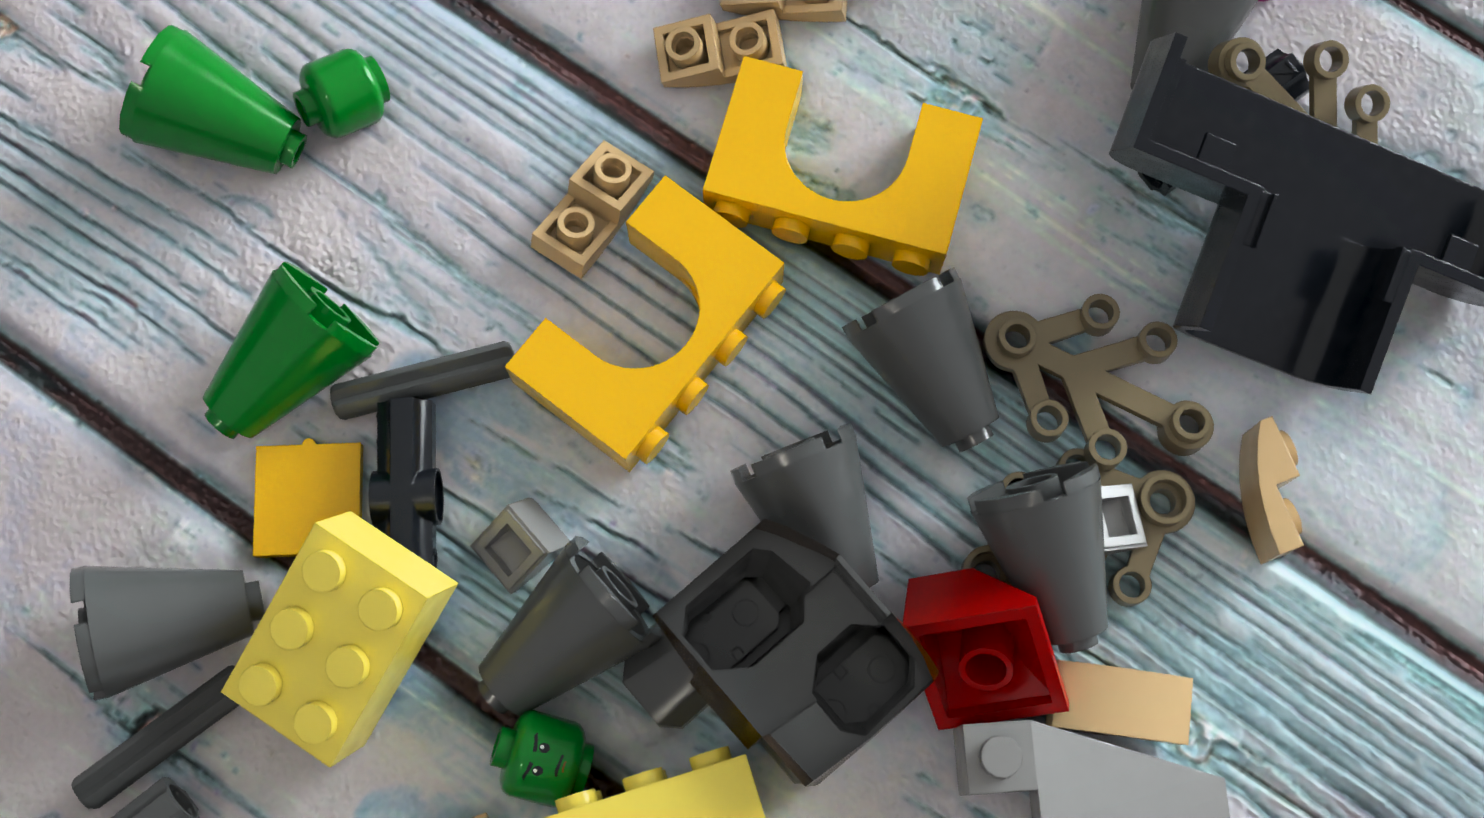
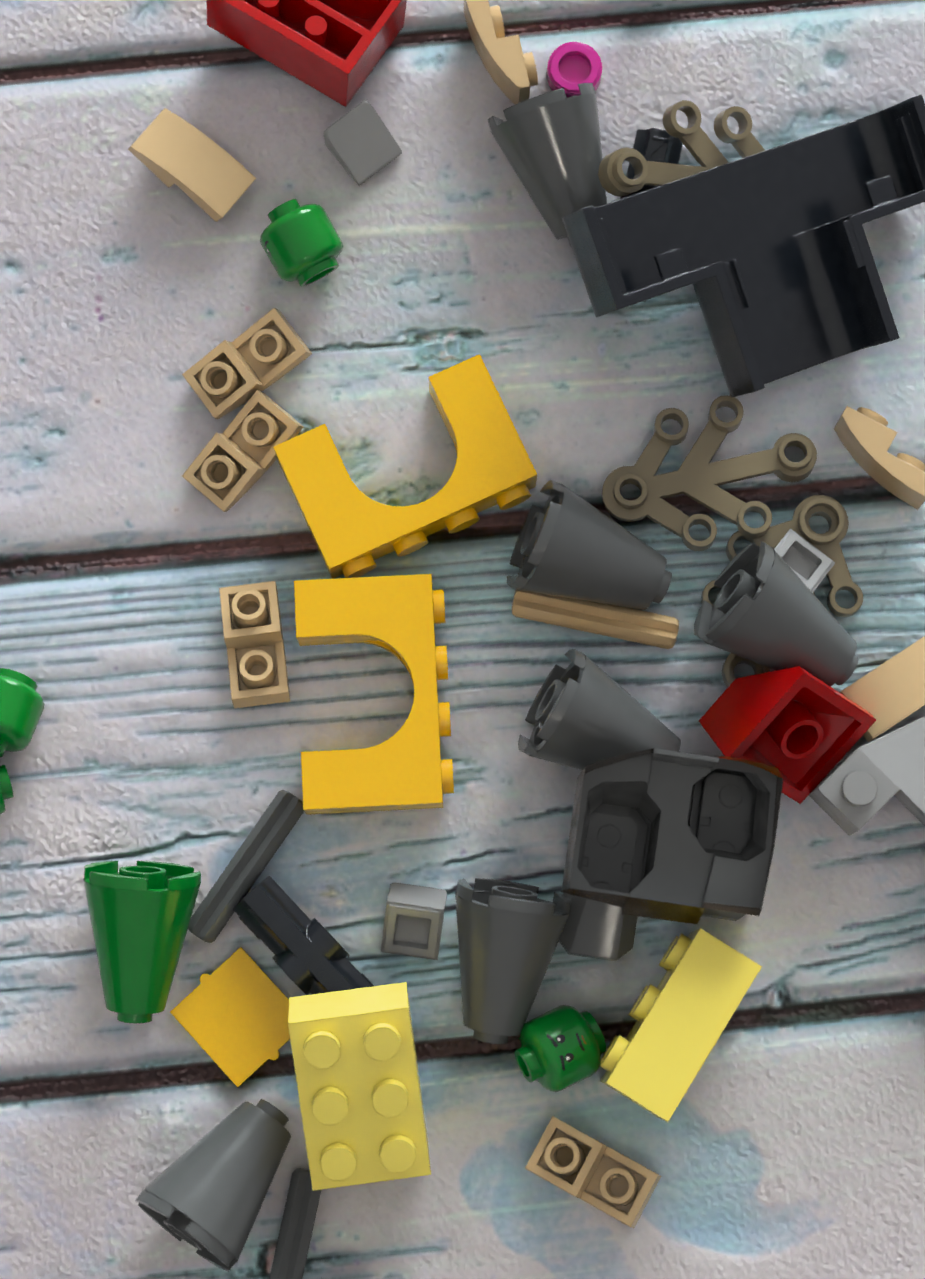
camera: 40 degrees left, 5 degrees up
(897, 422) = (598, 618): none -> tan axle

